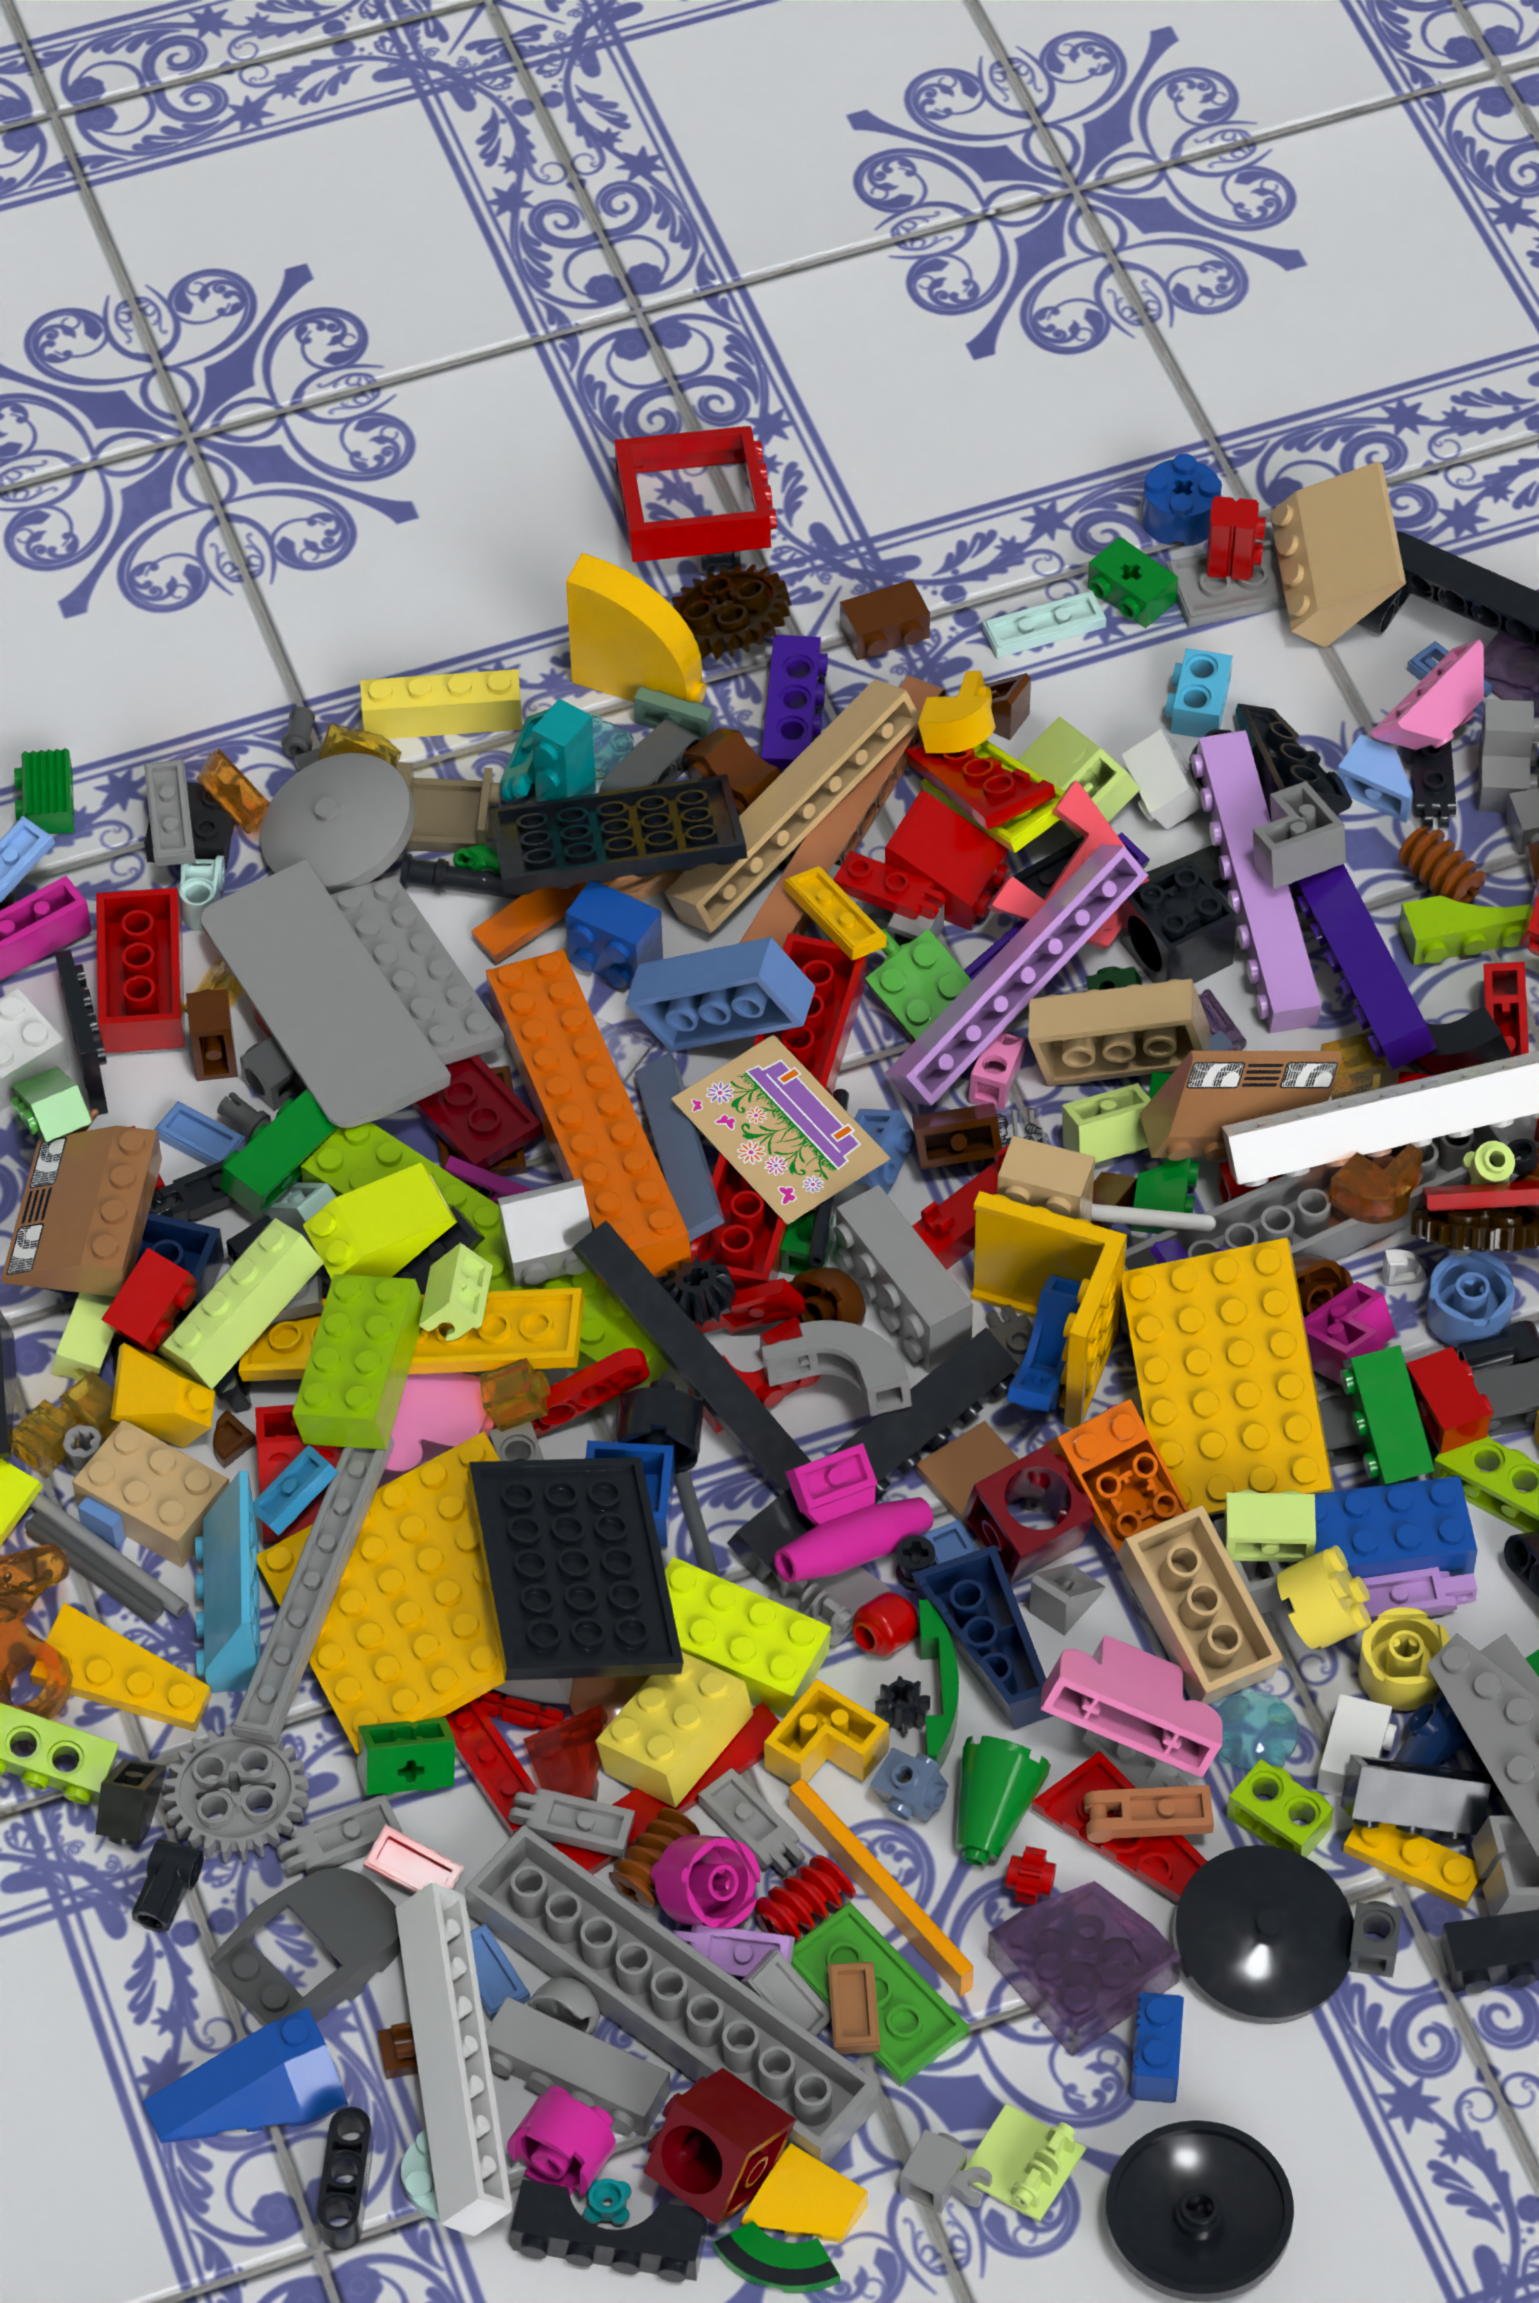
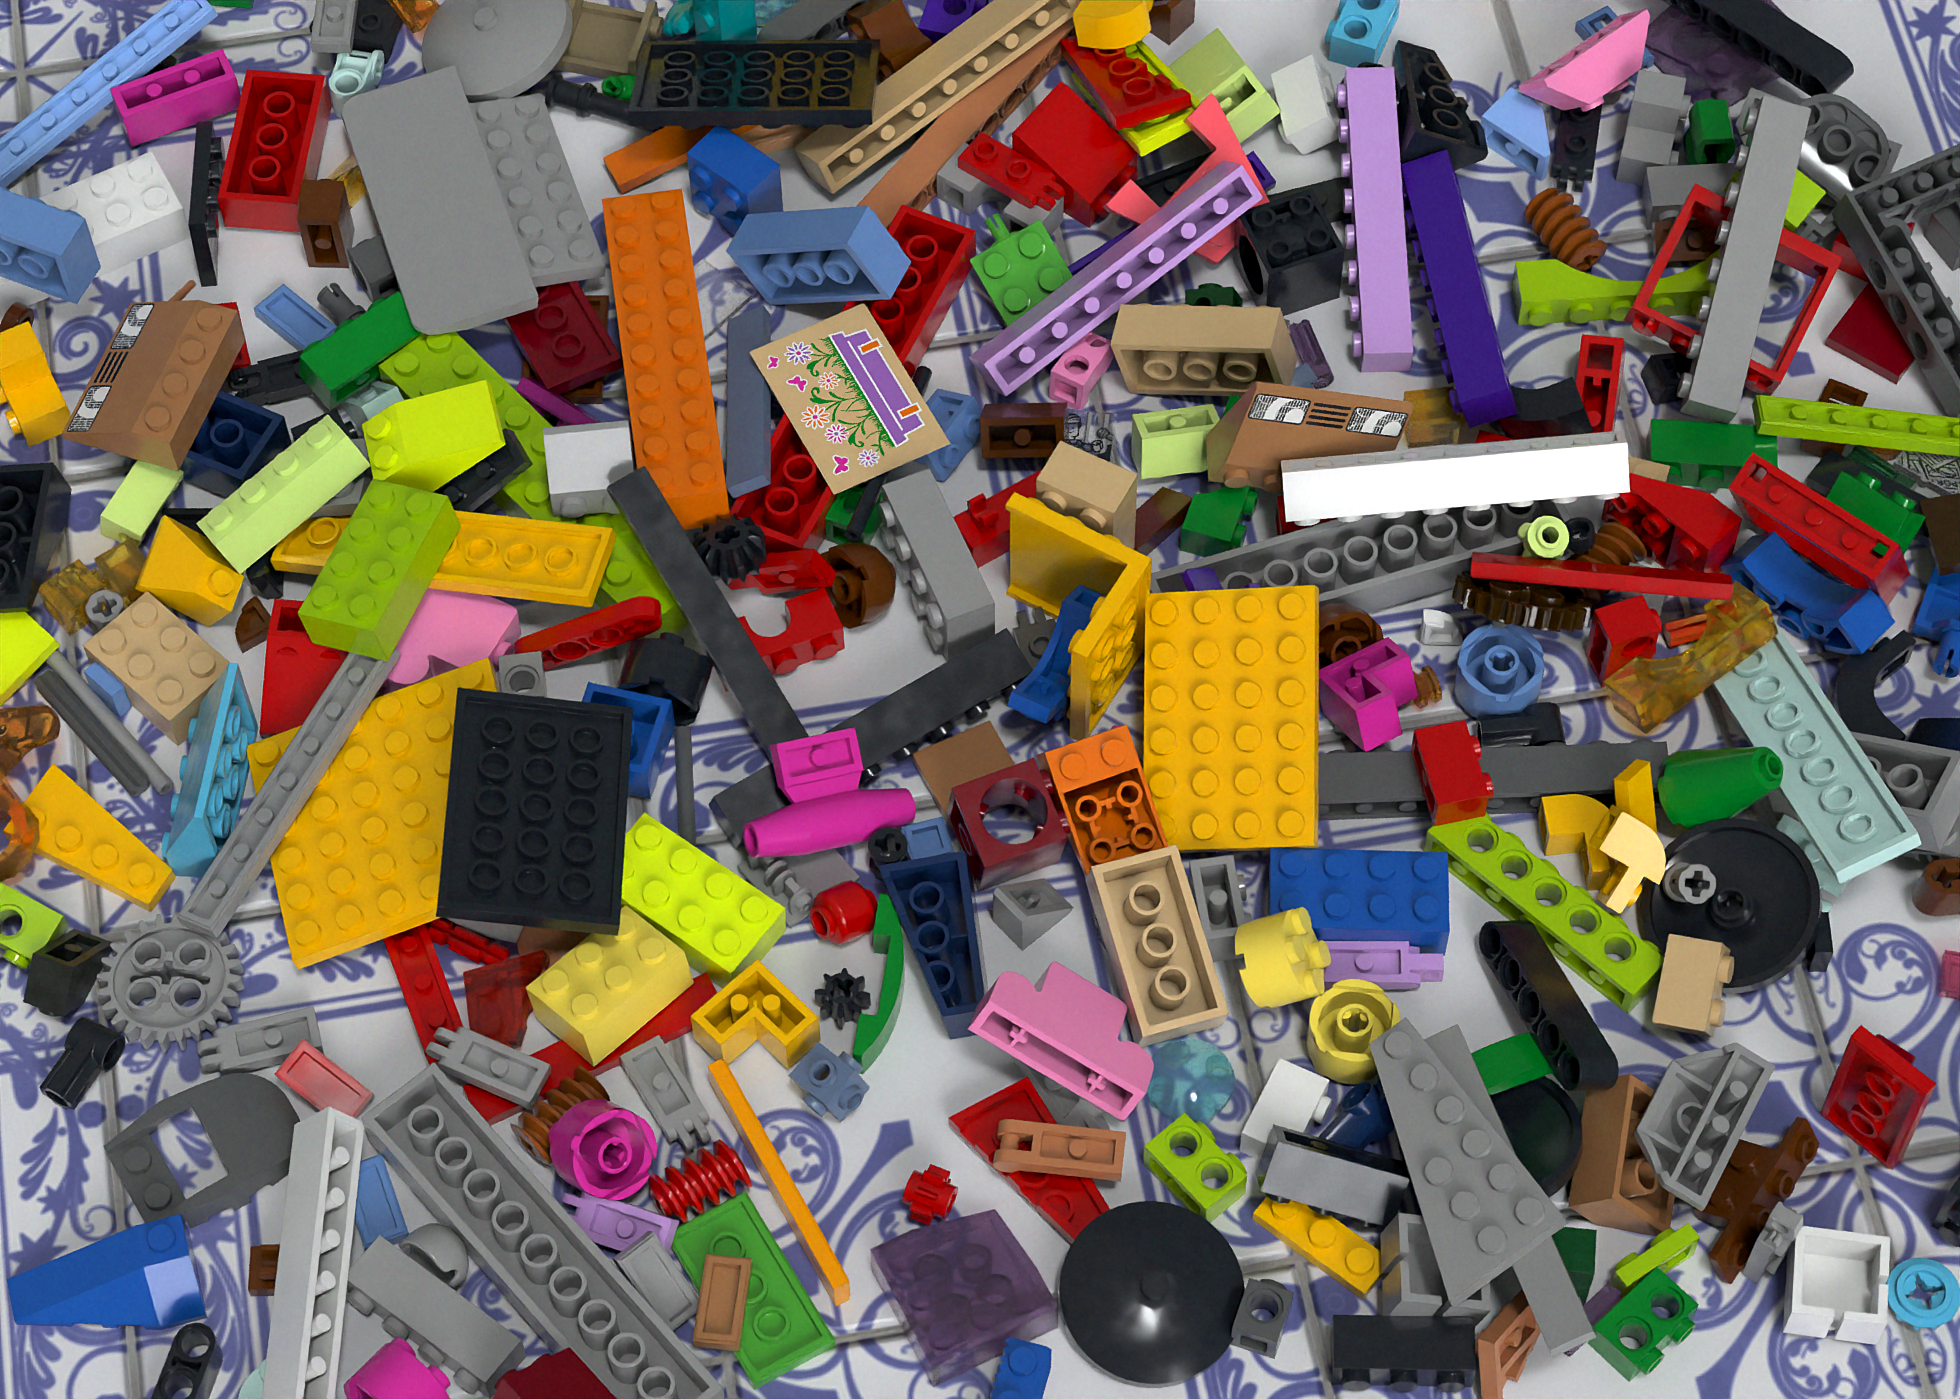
camera: 10 degrees right, 5 degrees up
(50, 1104) = (151, 270): brick -> none
(151, 1301) = (196, 477): red brick -> none
(294, 1489) = (292, 687): dark azure plate -> none
(406, 1756) = (340, 972): green brick -> none
(456, 1292) = (490, 514): yellowish green hinge -> none
(514, 1394) = (526, 625): clear yellow brick -> none
(835, 913) = (952, 191): yellow tile -> none
(846, 1352) = (859, 631): light grey arch -> none
(994, 1796) = (910, 1108): green cone -> none
(1153, 1218) = (1194, 541): white piece -> none
(1269, 1526) = (1240, 876): yellowish green brick -> none
(1300, 839) = (1423, 184): light grey brick -> none
(1376, 1193) = (1423, 552): clear orange brick -> none
(1386, 1416) = (1384, 780): green brick -> none
(1404, 1325) = (1427, 687): none -> clear orange bush

